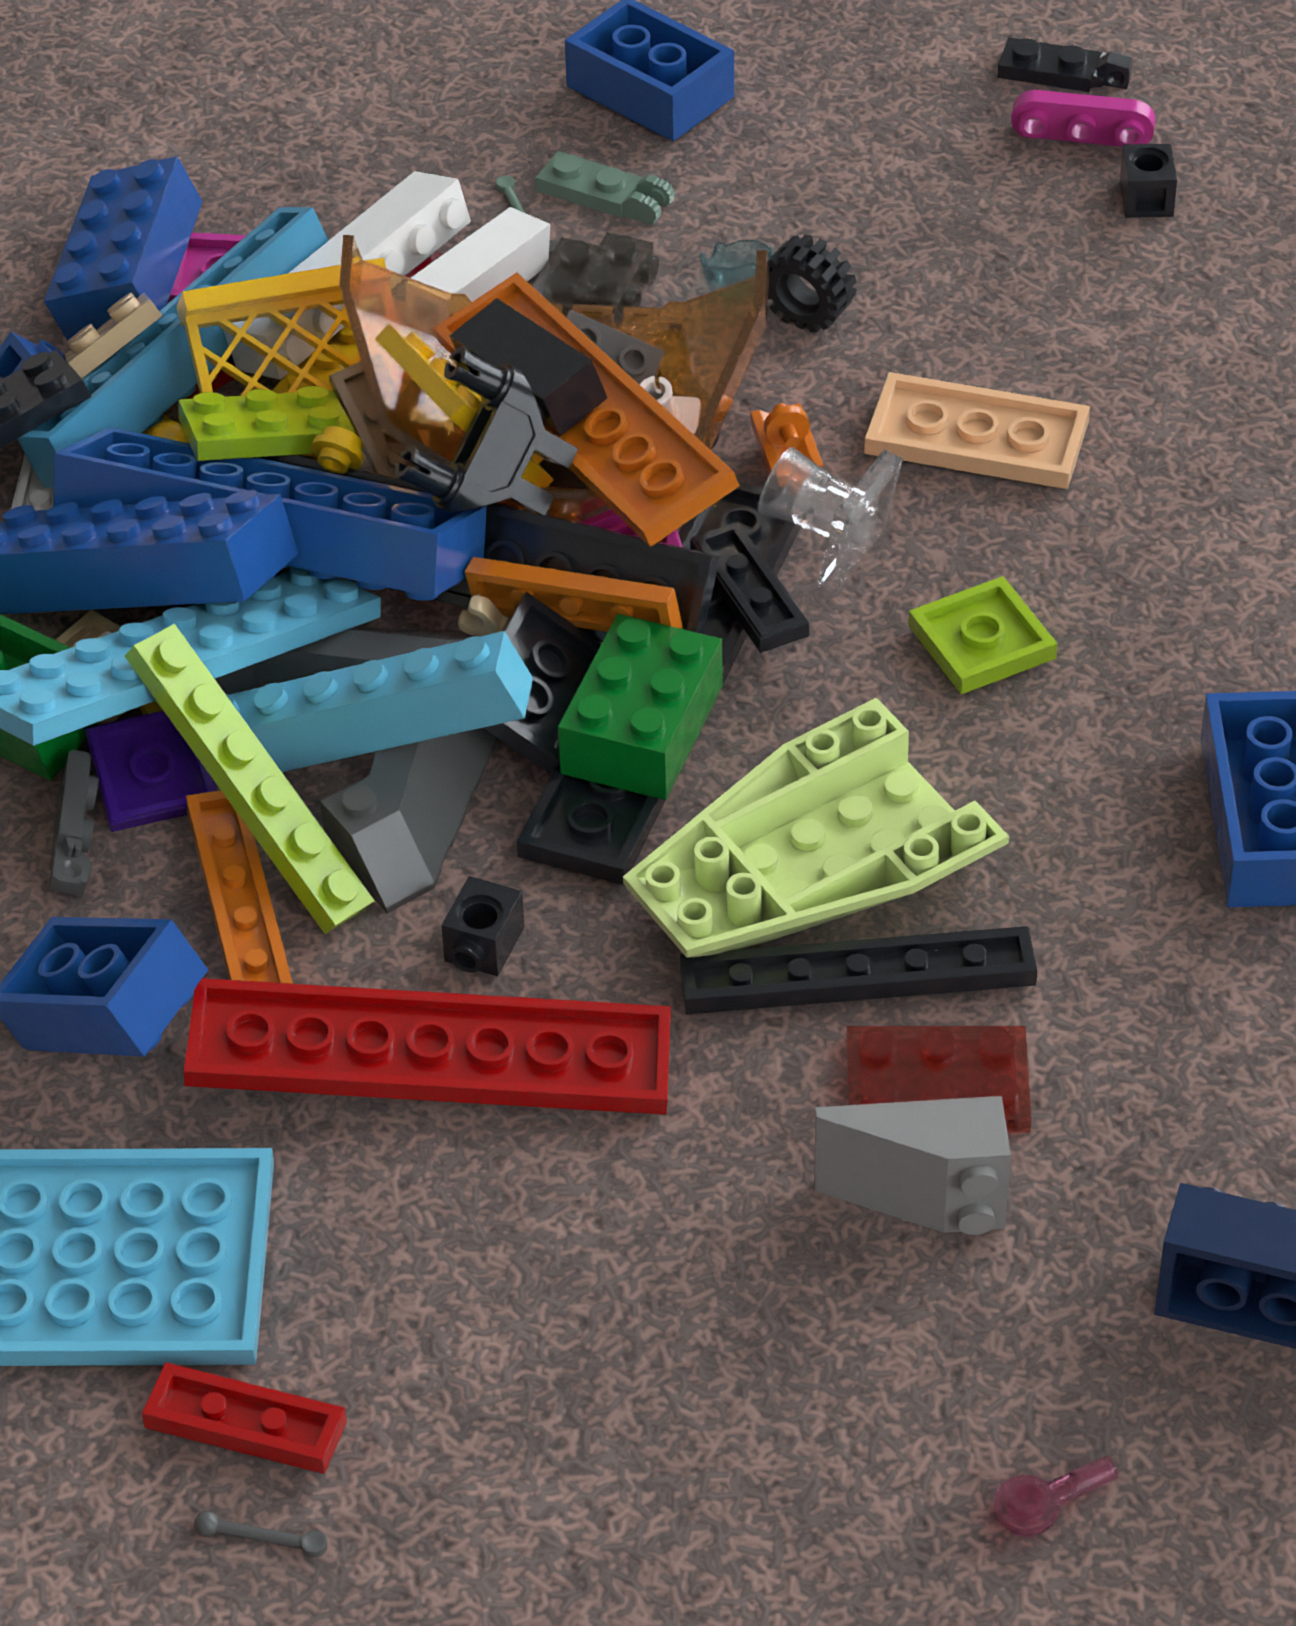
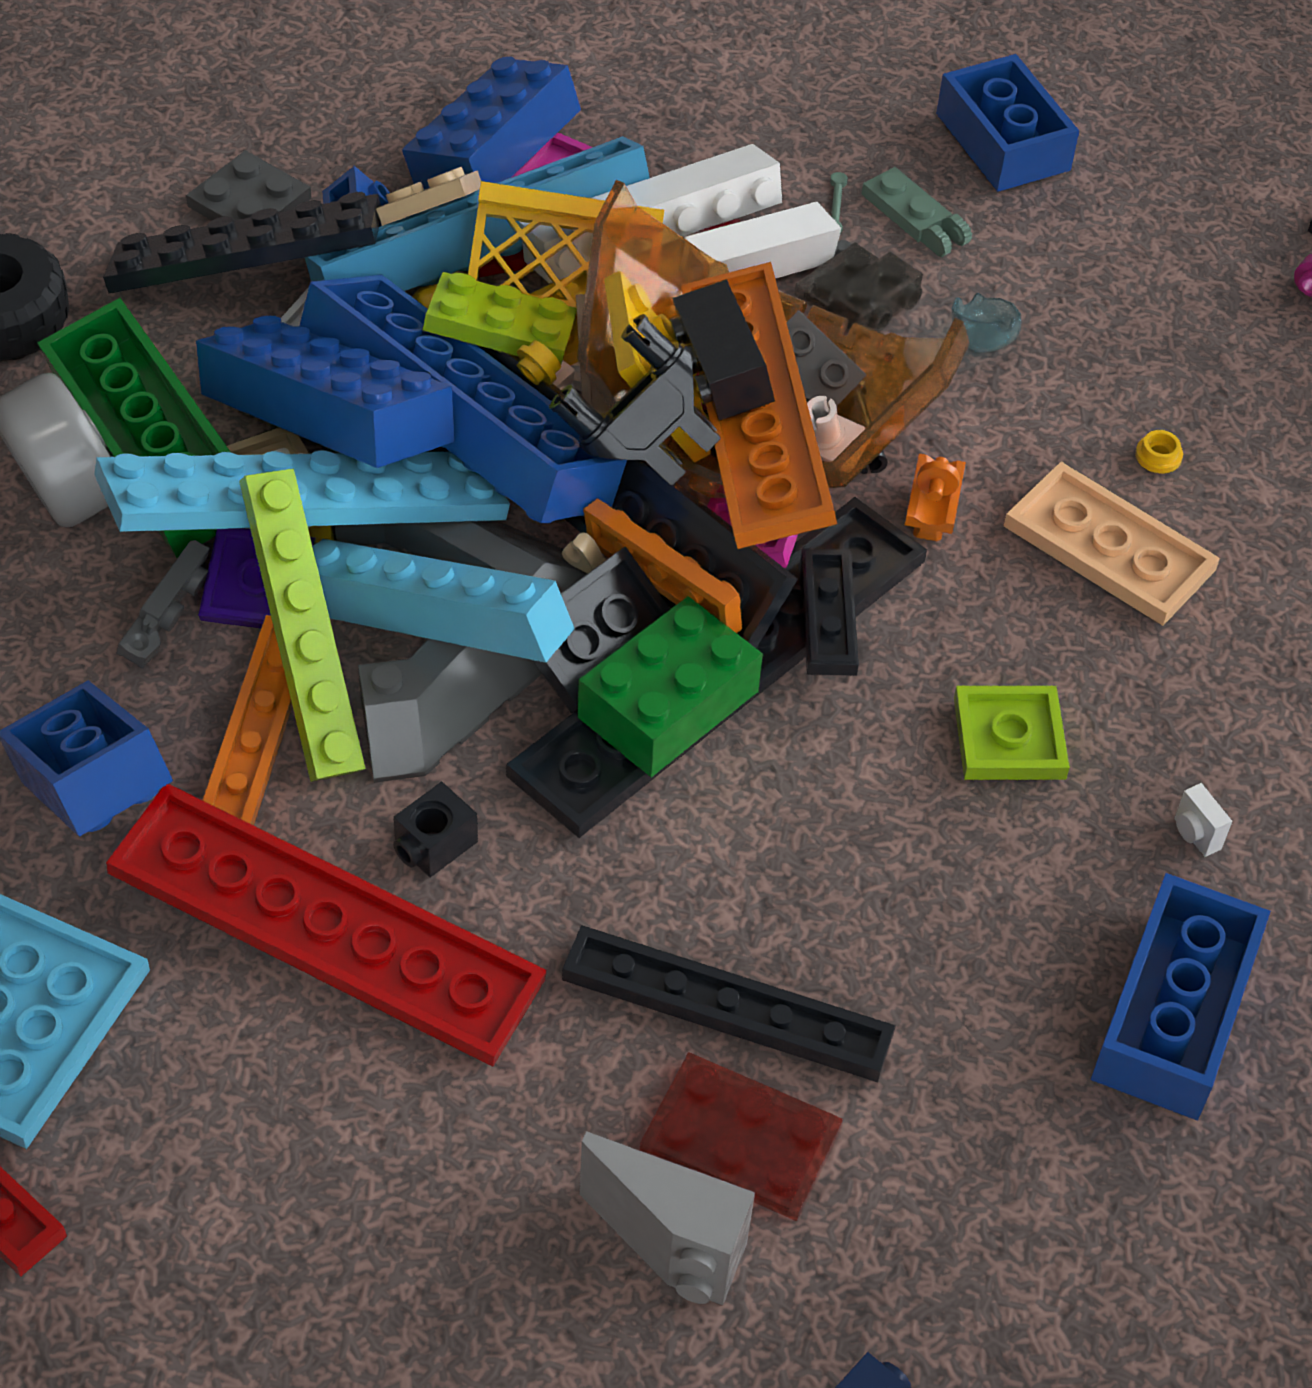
camera: 20 degrees right, 5 degrees up
(809, 839) = (749, 866): yellowish green wedge -> none
(822, 270) = (1032, 357): black tyre -> none
(826, 505) = (943, 578): clear plant -> none
(975, 331) = (1159, 452): none -> yellow plate
(1205, 644) = (1202, 820): none -> white plate

